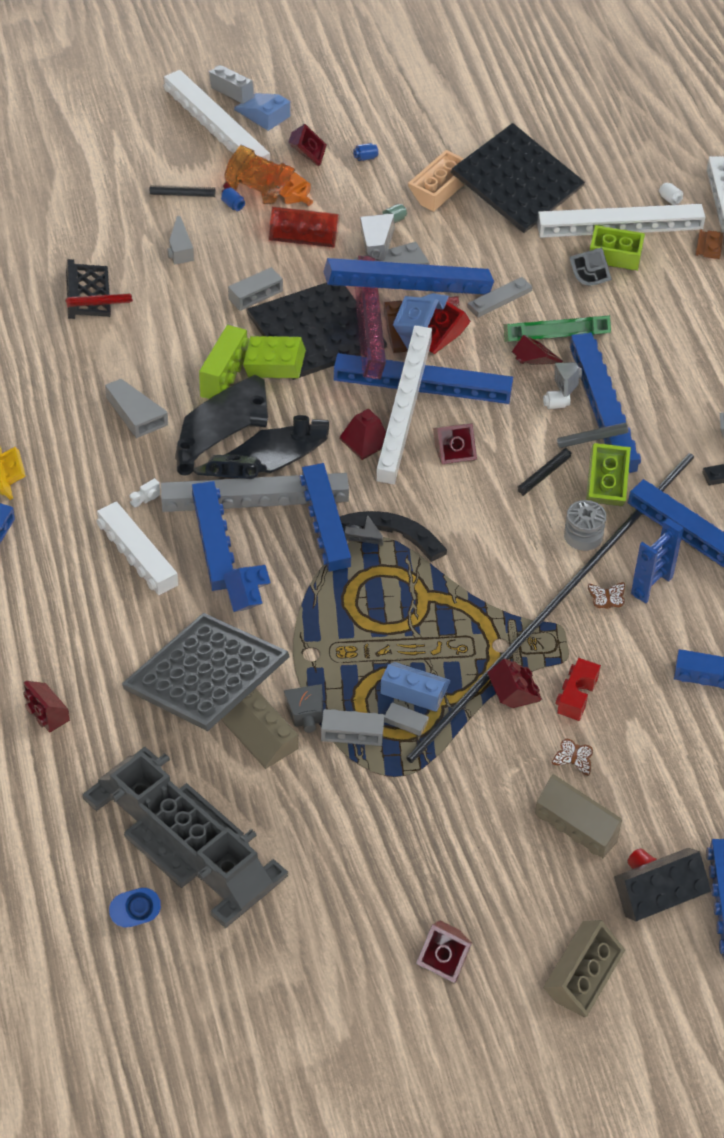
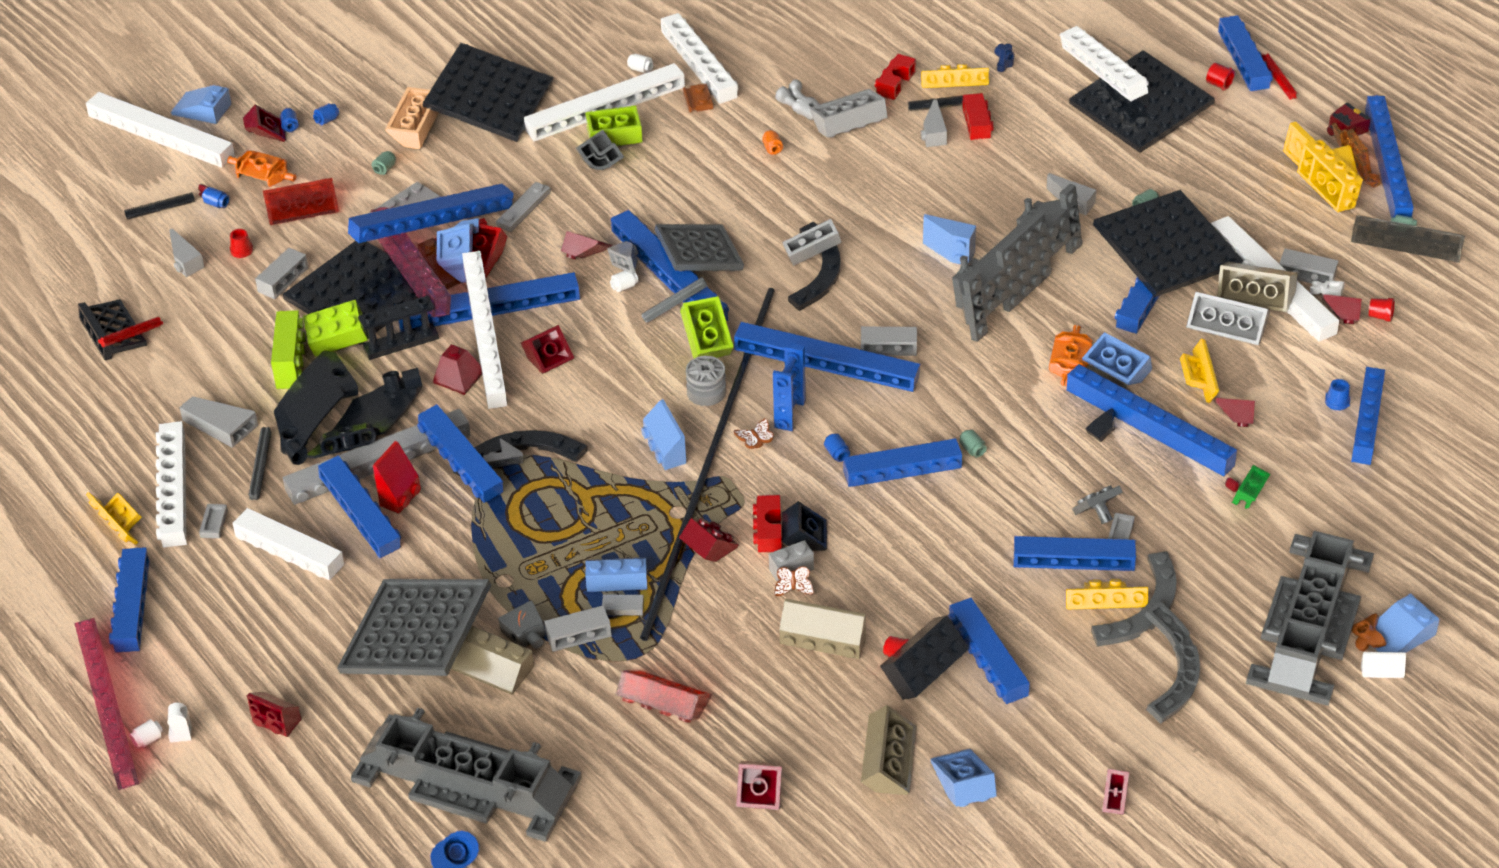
camera: 20 degrees left, 5 degrees down
(65, 455) = (171, 485): none -> white brick
(85, 502) = (213, 521): none -> light grey tile
(147, 492) = (272, 491): white plate -> none
(151, 461) = (259, 464): none -> dark grey axle
(231, 84) = (158, 90): light grey brick -> none
(233, 249) = (240, 243): none -> red piece
(244, 586) = (413, 540): blue brick -> none
(256, 520) = (395, 479): none -> red slope
(257, 173) = (230, 165): clear orange piece -> none
(329, 388) = (403, 340): none -> black fence
(331, 147) = (289, 120): none -> blue brick
(377, 234) = (376, 185): slope -> none
(400, 823) = (662, 694): none -> clear red slope
(520, 567) = (664, 436): none -> slope
(544, 471) = (643, 347): black axle -> none
(557, 328) = (593, 216): green arch -> none
(583, 732) = (791, 557): none -> light grey brick
(609, 707) = (803, 524): none -> black slope
(639, 391) = (698, 247): none -> dark grey plate
(646, 1022) = (965, 777): none -> medium blue slope
(679, 635) = (836, 447): none -> blue brick

